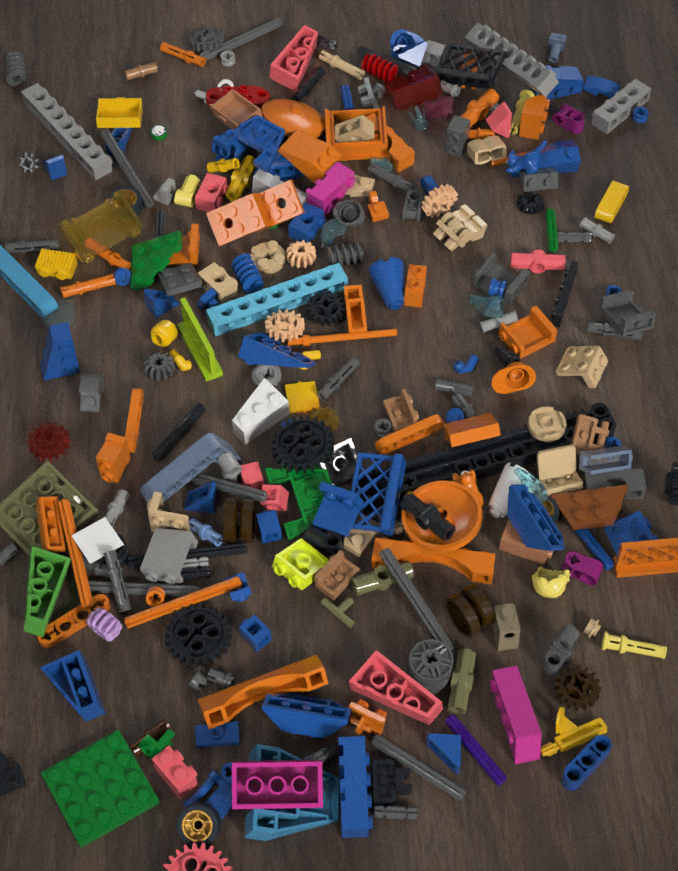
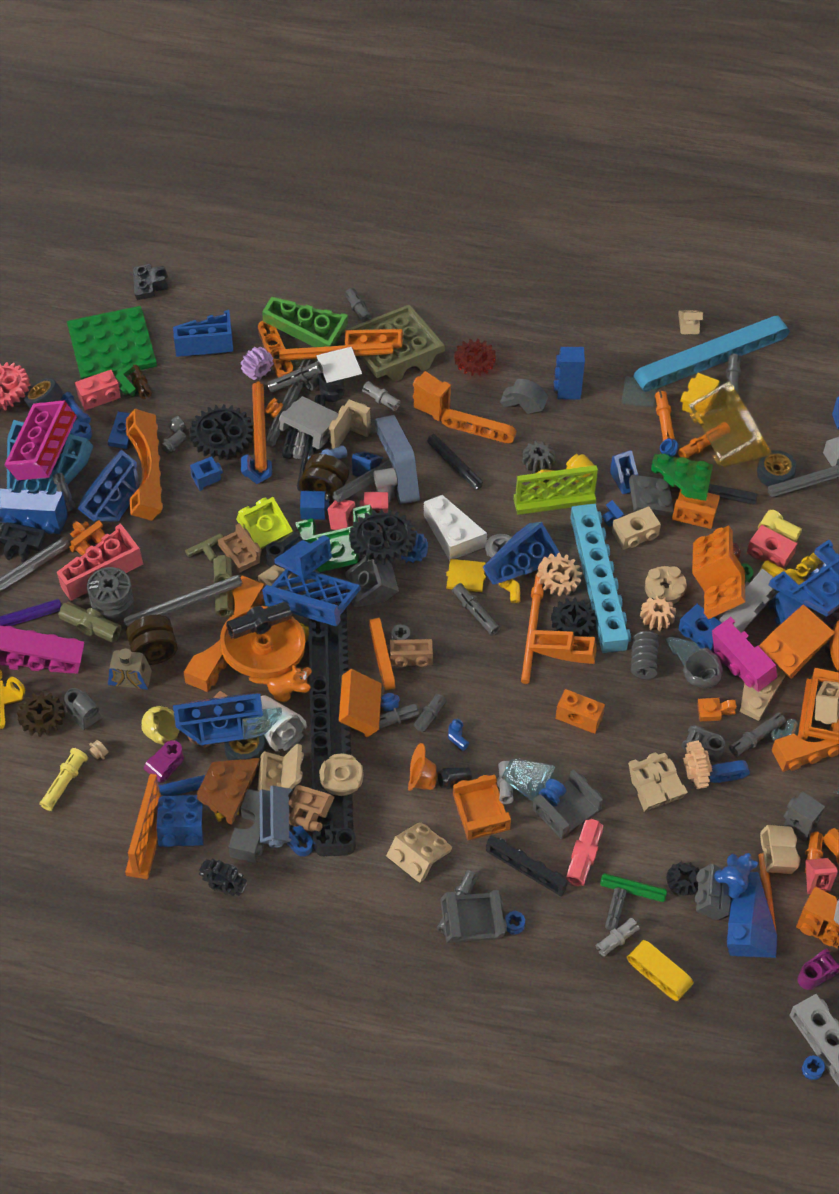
camera: 105 degrees right, 0 degrees up
(166, 192) = (780, 503): light grey bracket -> none
(247, 273) = (642, 554): blue piece -> none
(329, 416) = (424, 580): clear yellow gear -> none
(389, 281) = (592, 682): blue cone -> none
(447, 748) = (28, 591): blue slope -> none

